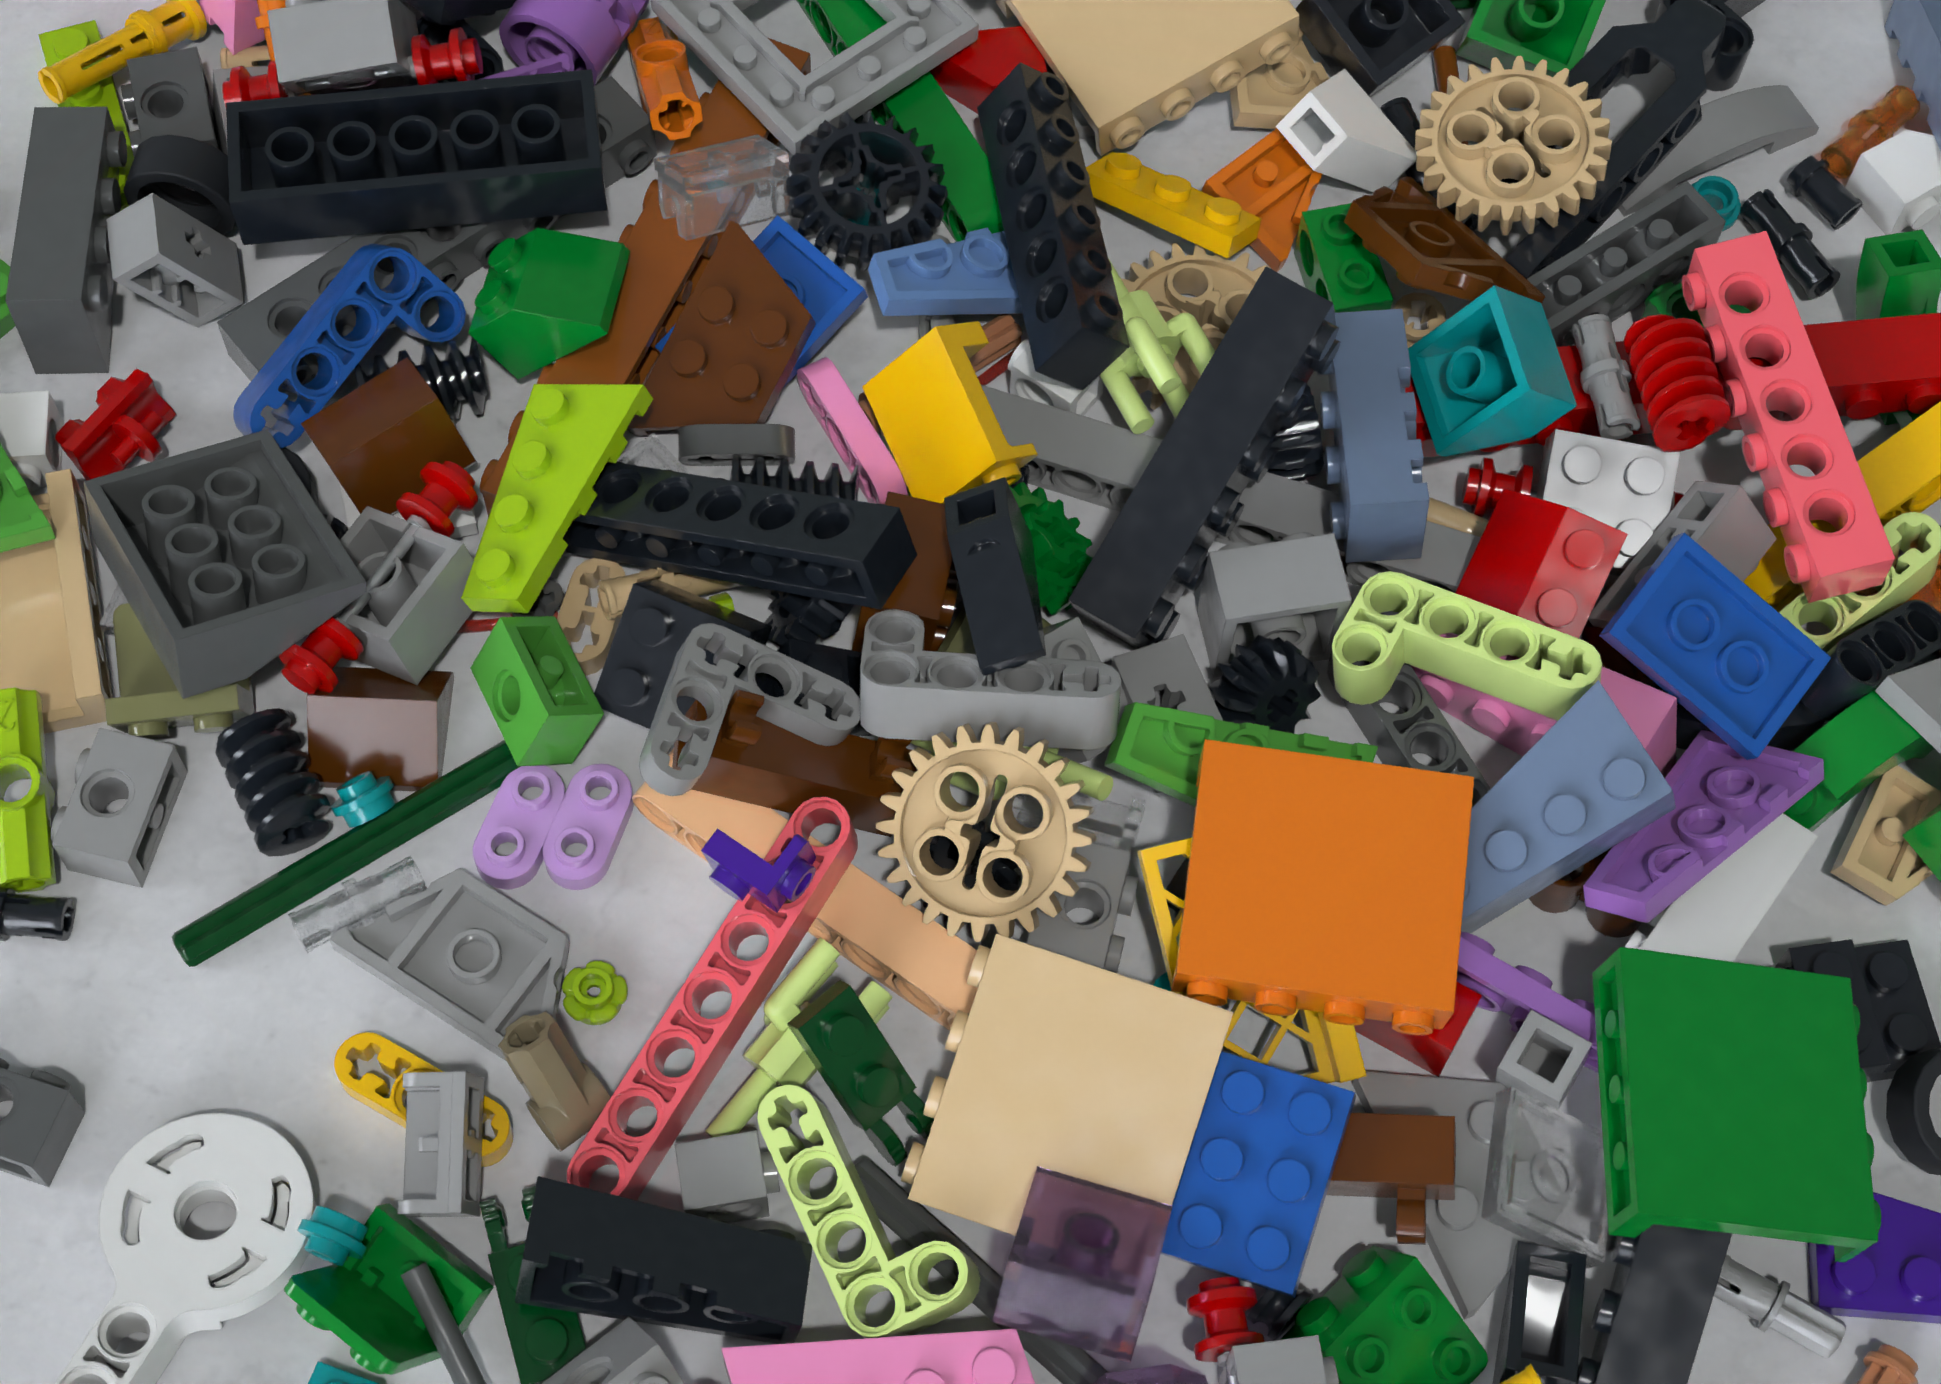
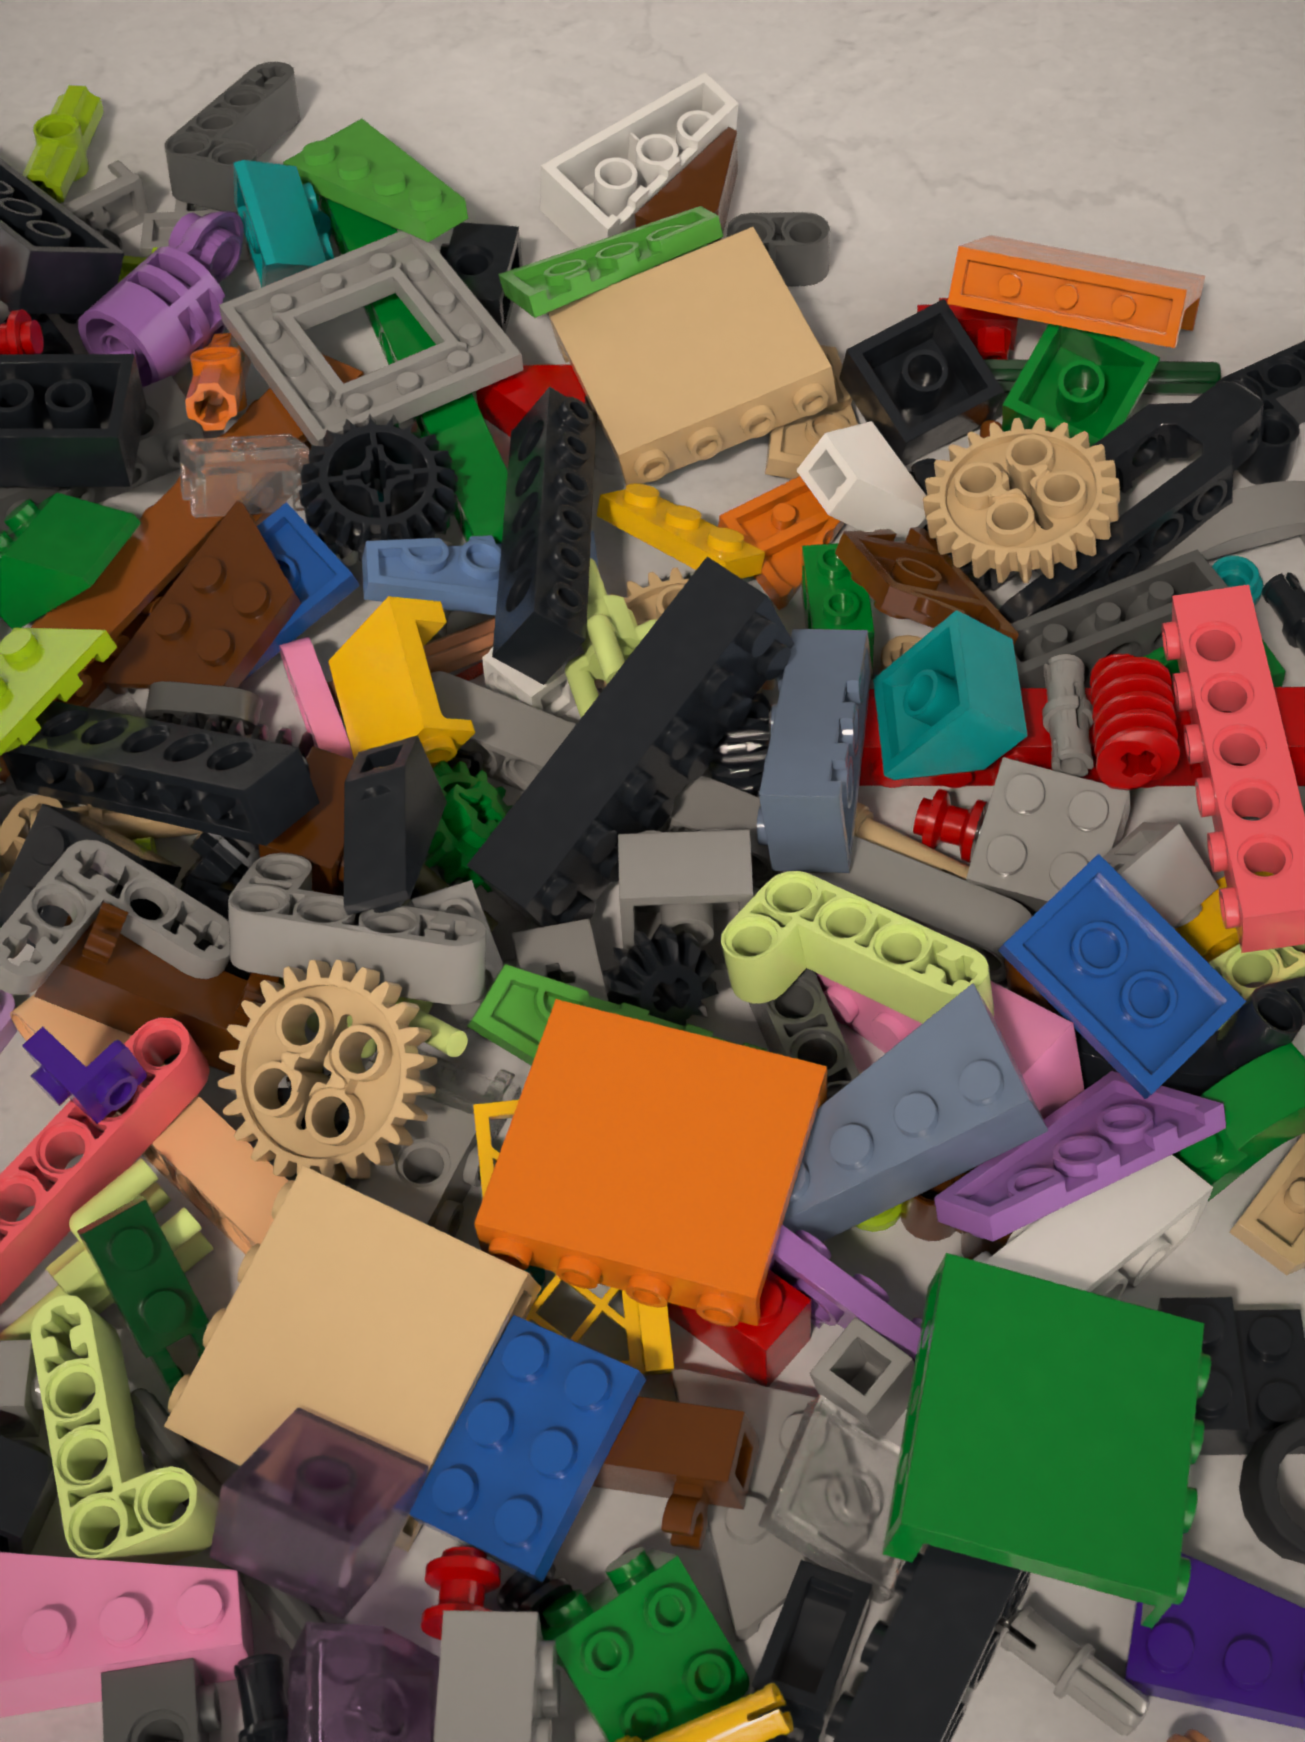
camera: 15 degrees right, 10 degrees down
(1542, 562) = (969, 883): red slope -> none

